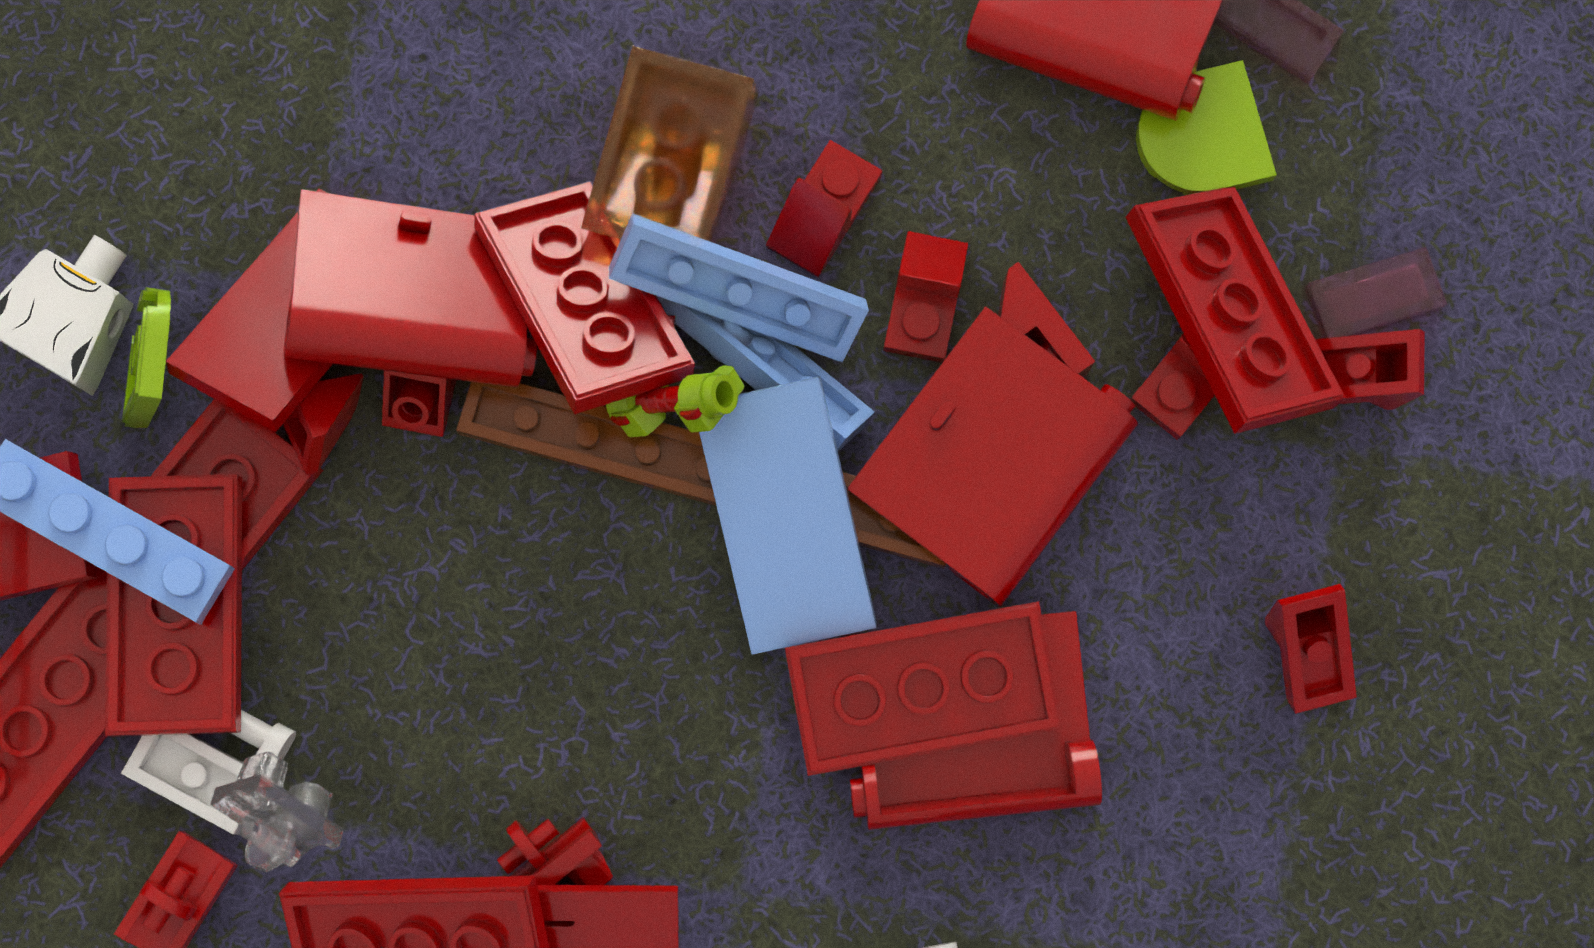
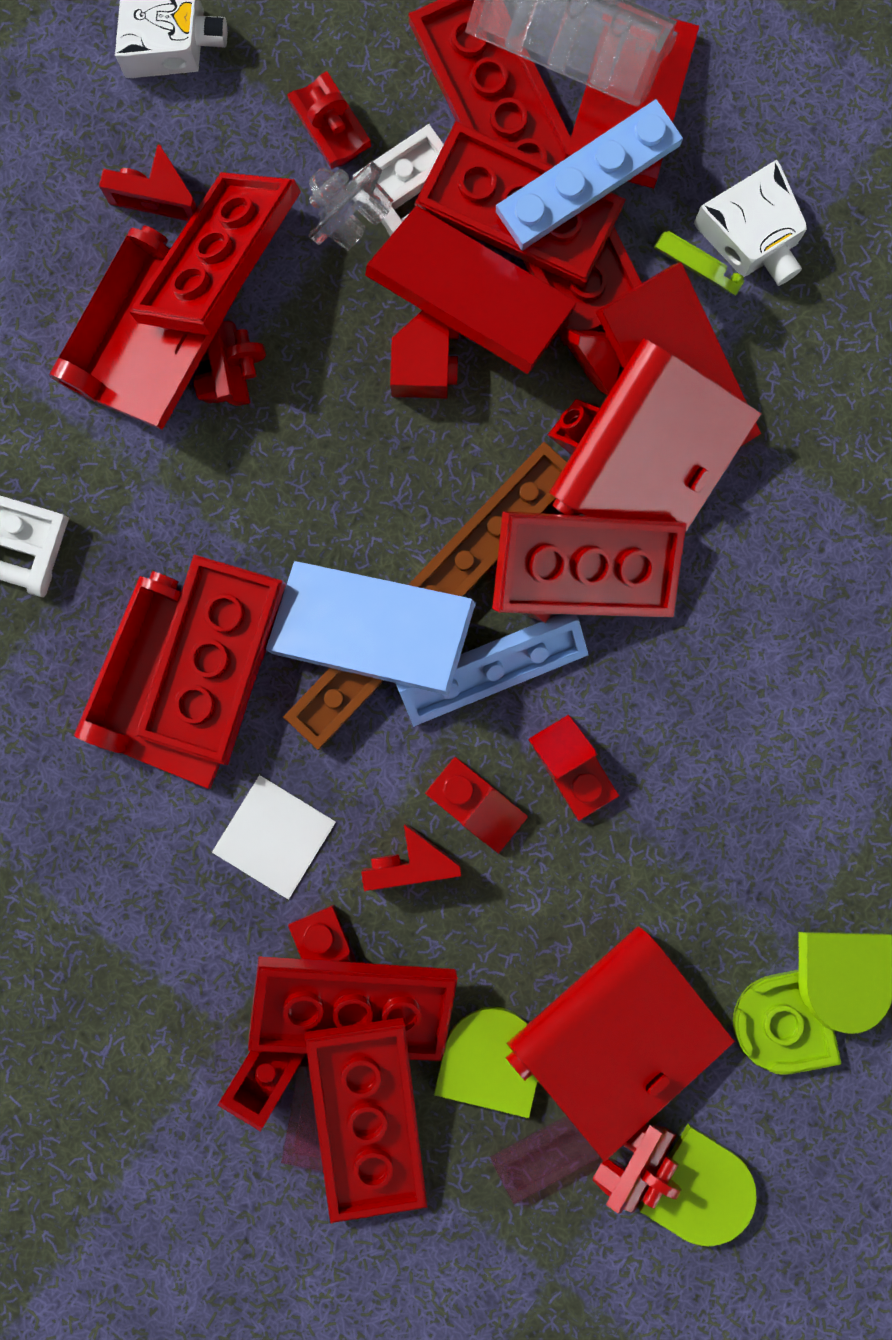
camera: 120 degrees right, 5 degrees up
(313, 603) = (471, 289): none -> red tile
(419, 629) = (422, 359): none -> red slope
(670, 146) = (660, 676): clear orange slope -> none
(697, 400) = (470, 599): lime piece -> none
(737, 288) = (540, 672): light blue plate -> none
(1003, 464) = (327, 788): red door -> none
(1109, 522) = (273, 837): none -> white sticker
(1314, 647) = (96, 934): red slope -> none
(1344, 231) = (366, 1119): none -> red tile

